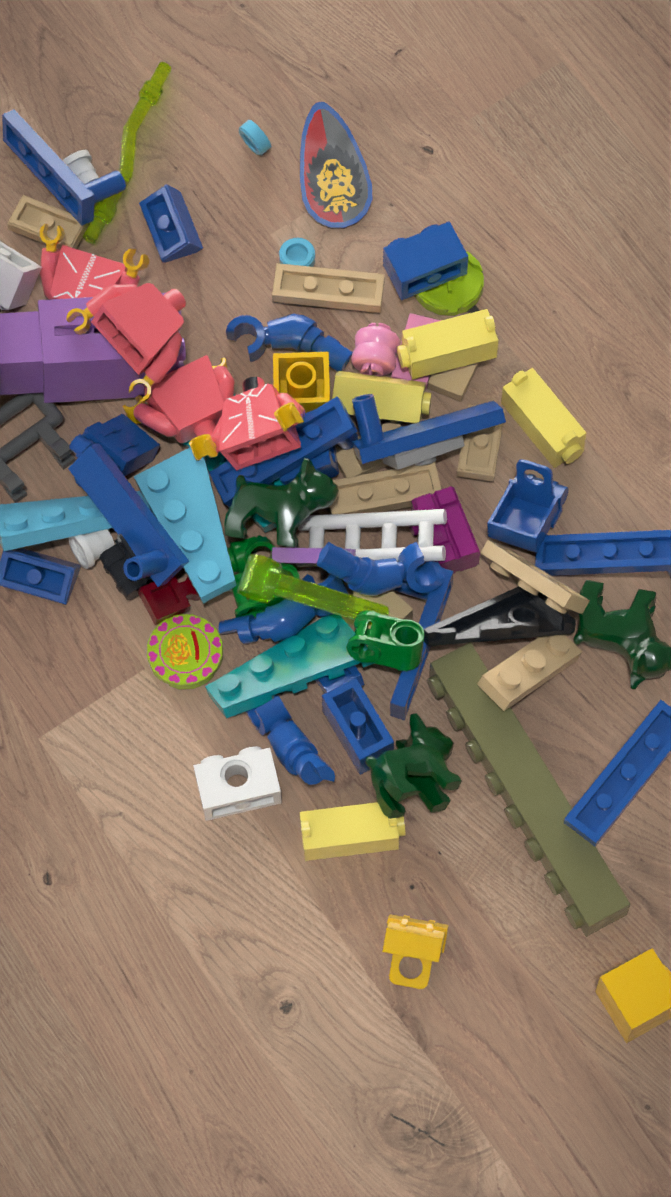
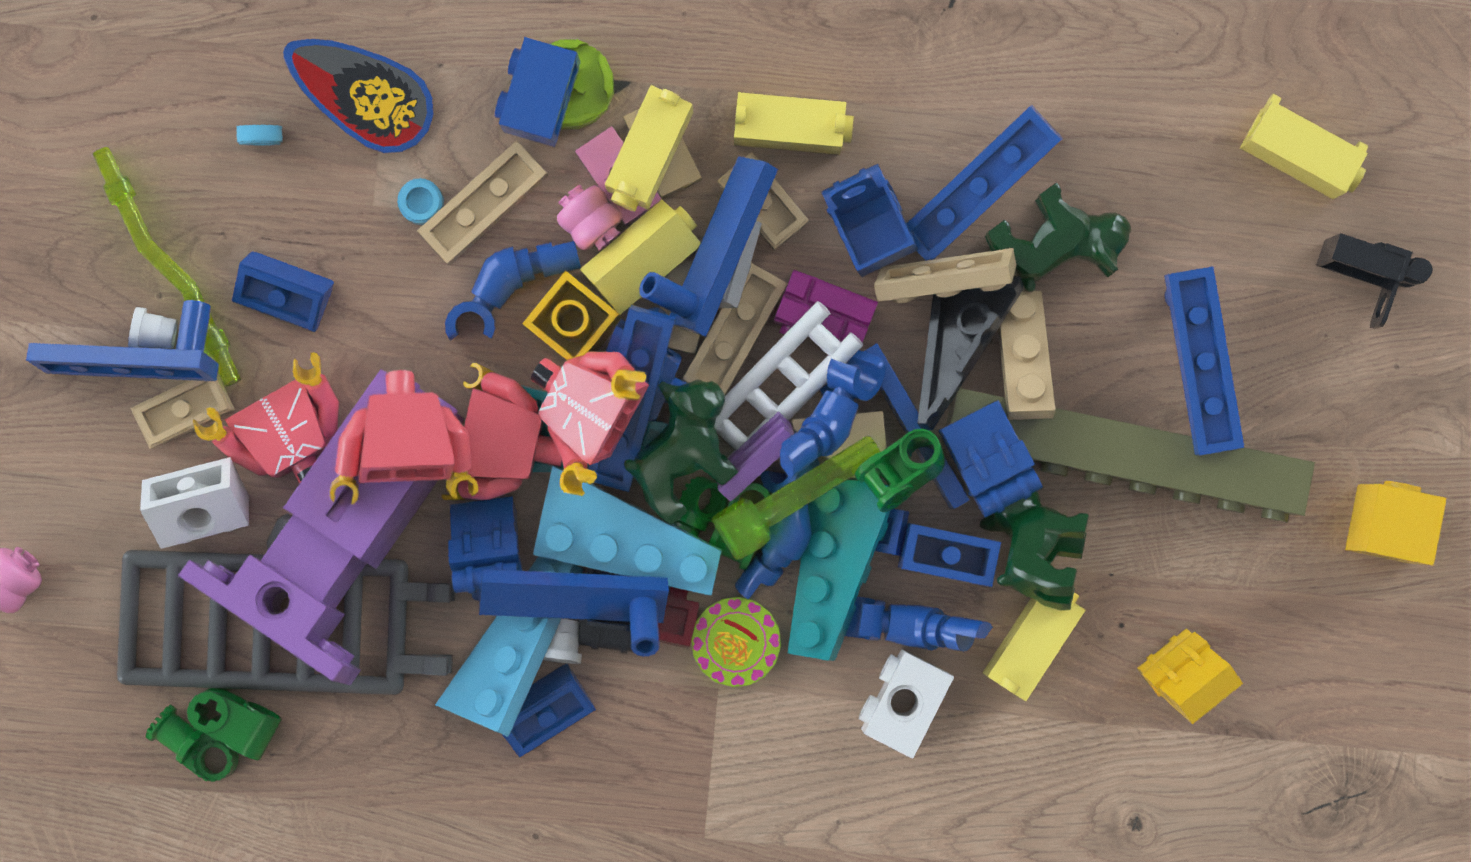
camera: 55 degrees left, 20 degrees up
(442, 691) = (991, 459): none -> blue piece

